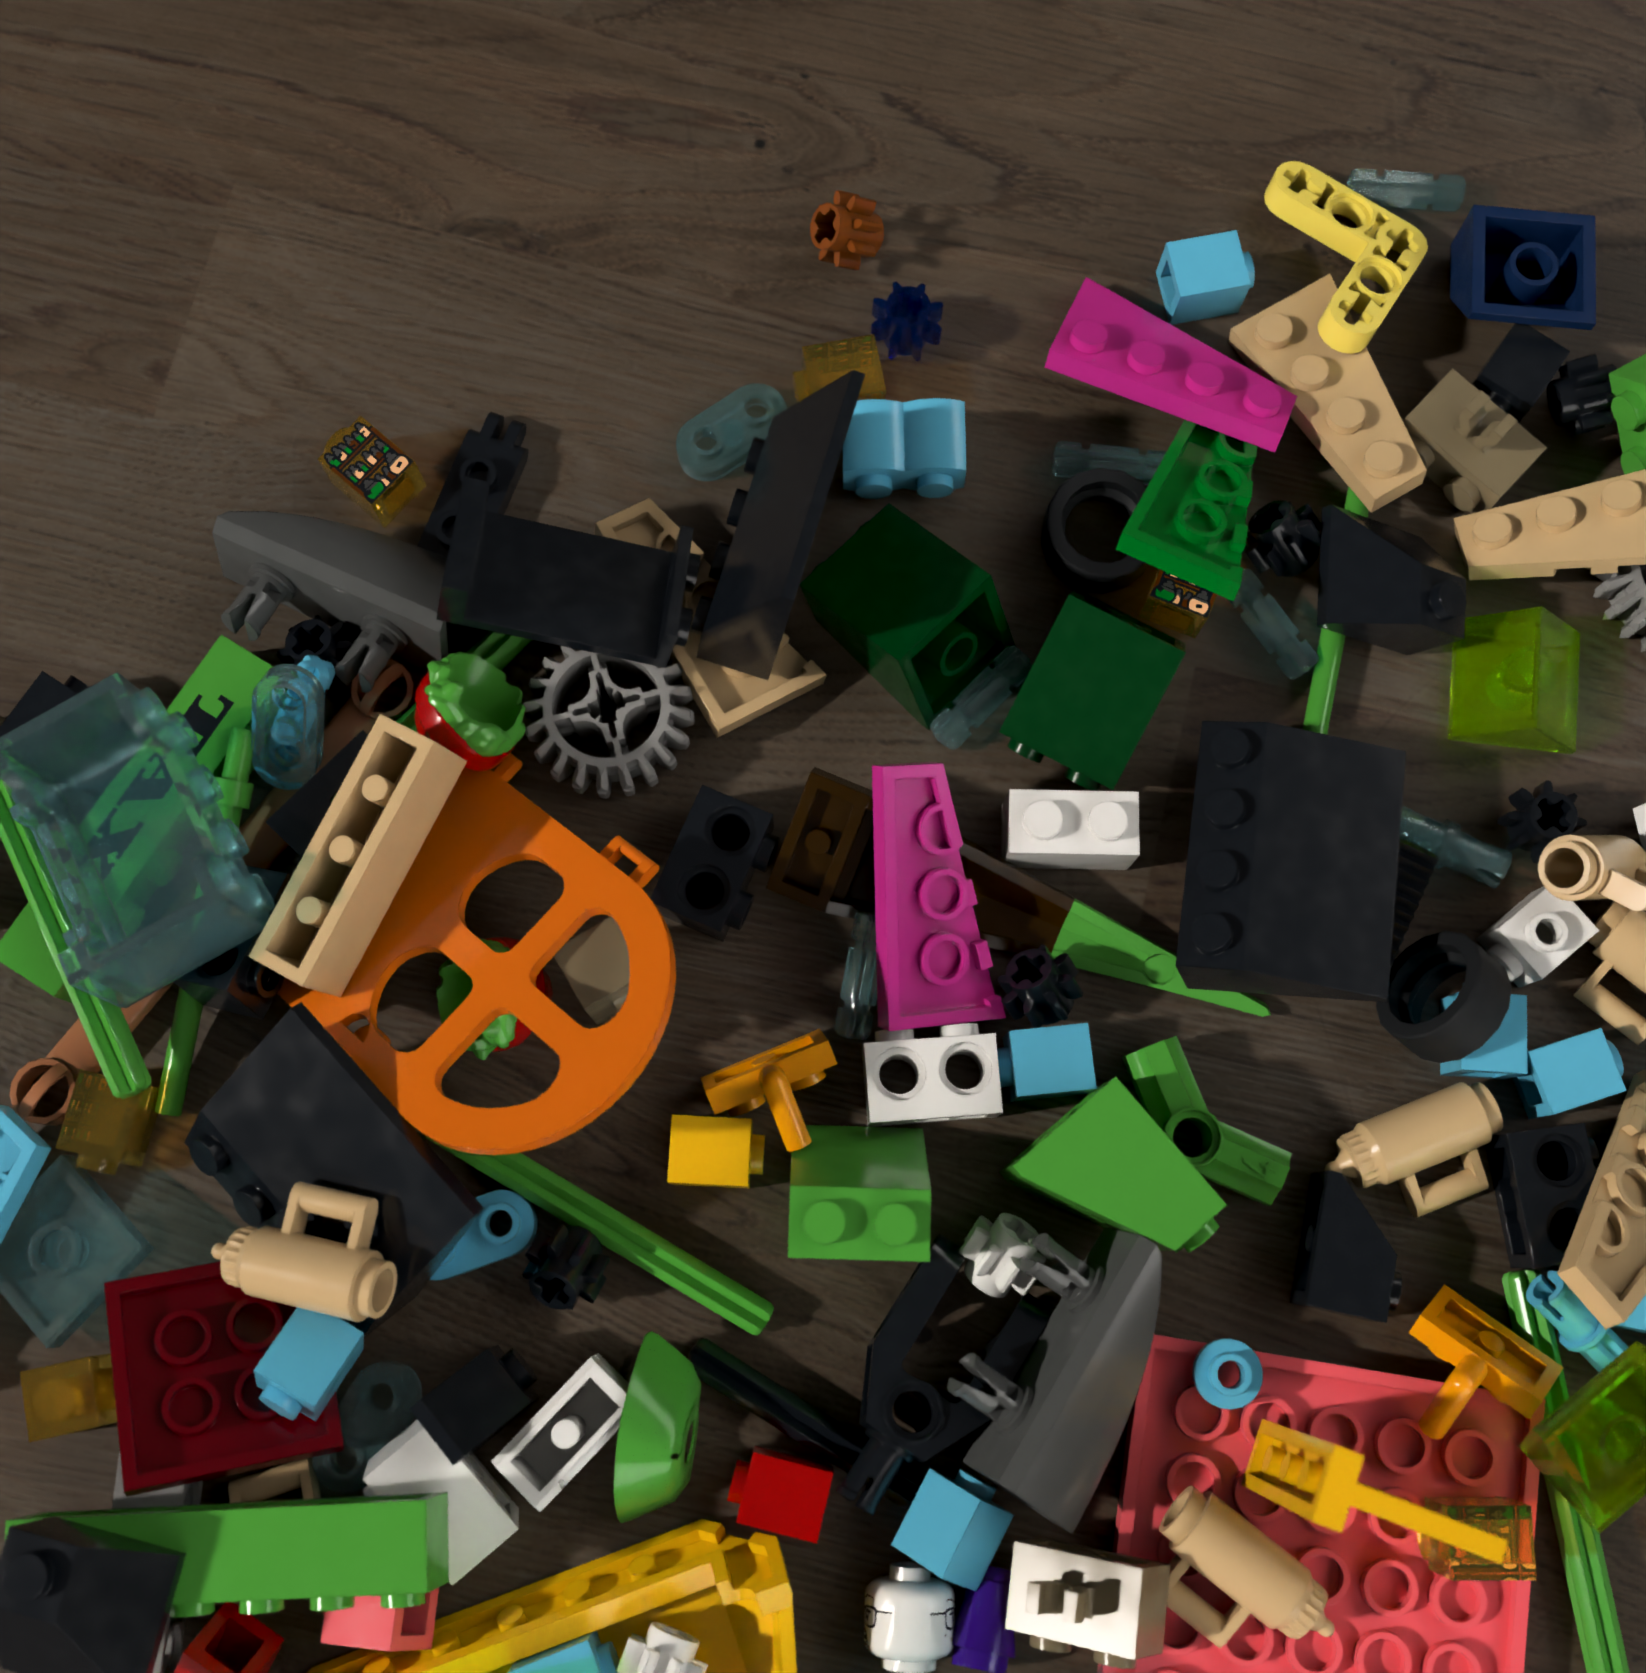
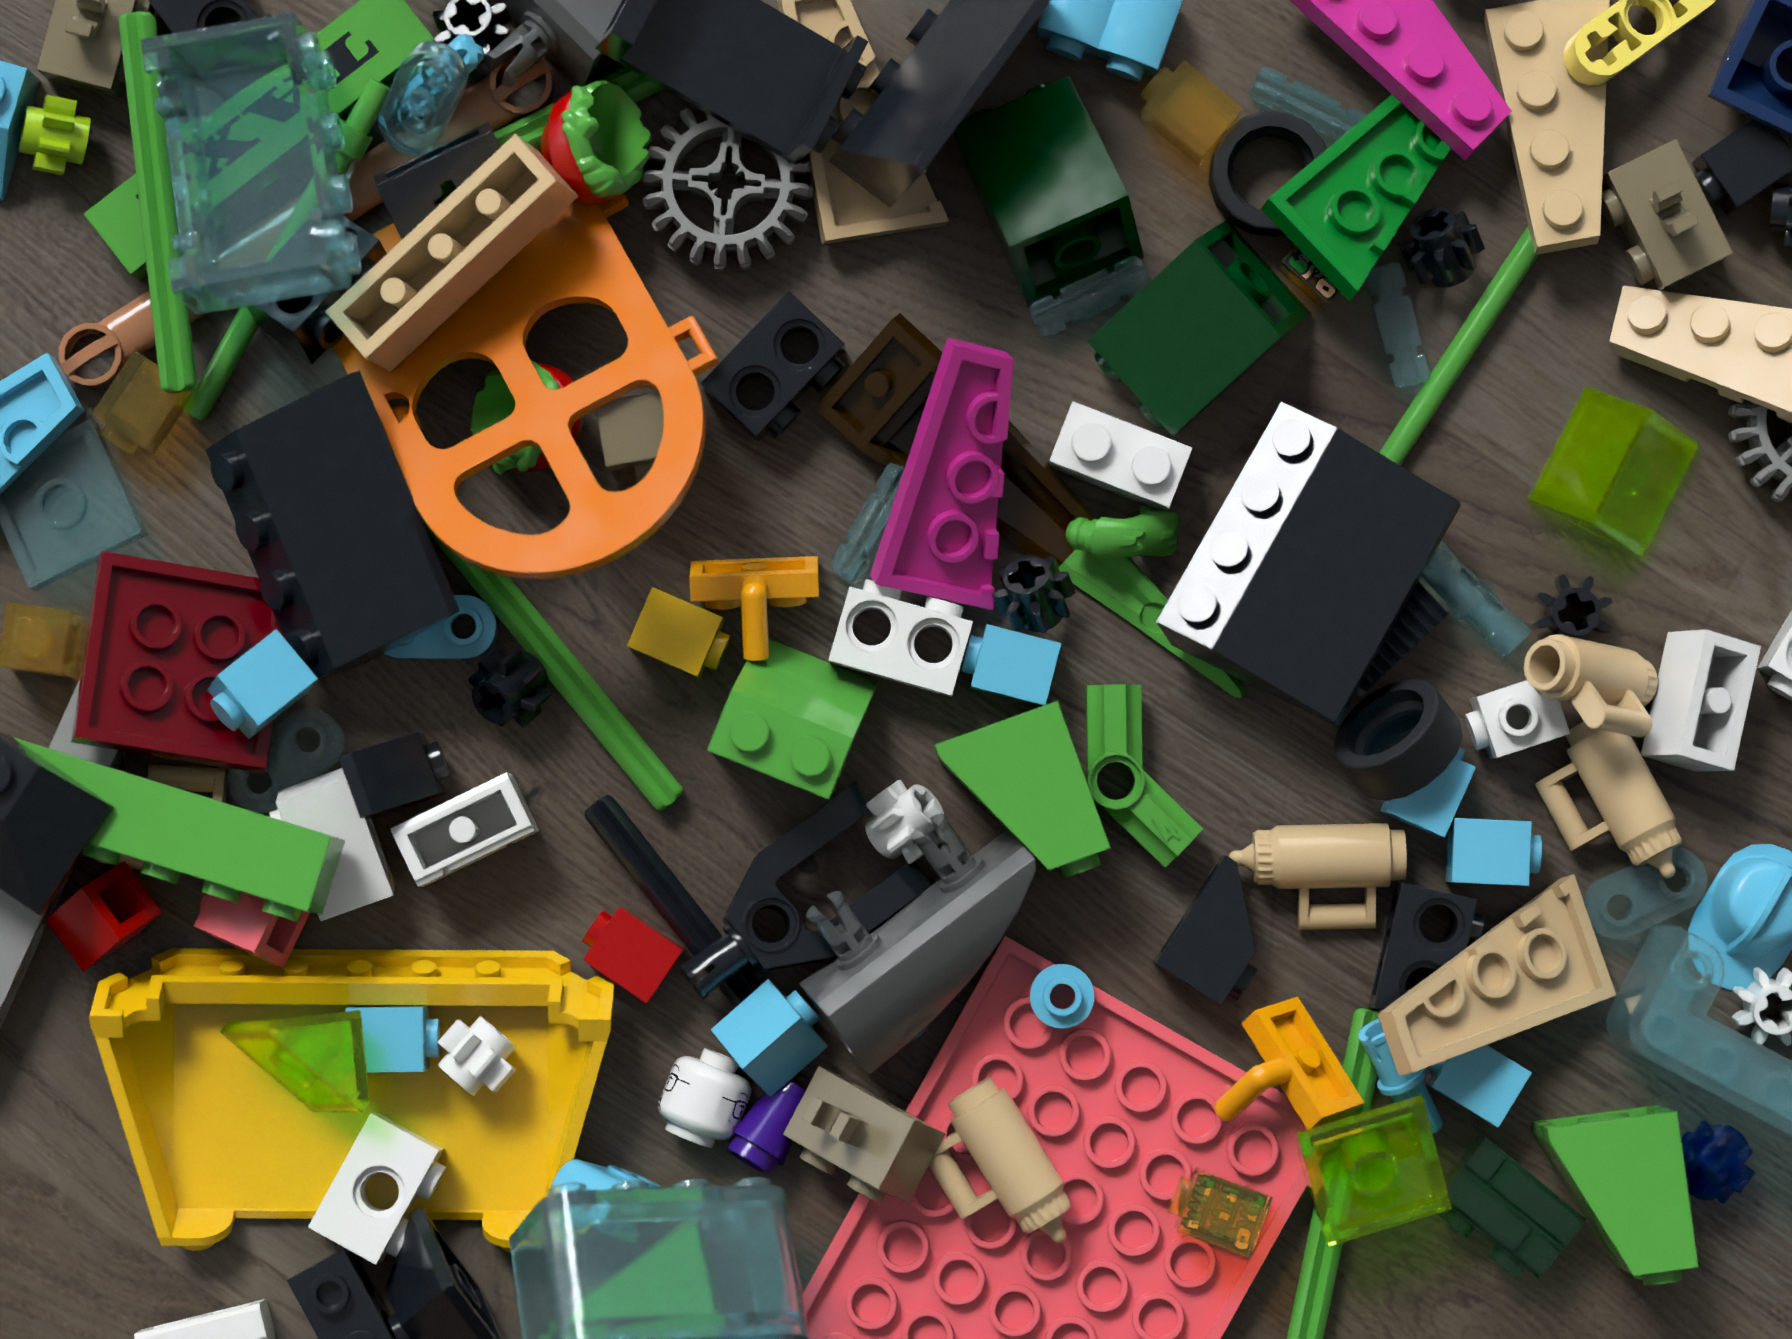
camera: 25 degrees right, 10 degrees up
(312, 1270) = (291, 608): tan piece -> none
(652, 1427) = (541, 851): bright green piece -> none
(1006, 500) = (1188, 110): none -> clear yellow brick
(1122, 892) = (1144, 535): none -> bright green piece
(1322, 1484) = (1077, 1088): yellow fence -> none
(1386, 586) = (1519, 328): black slope -> none

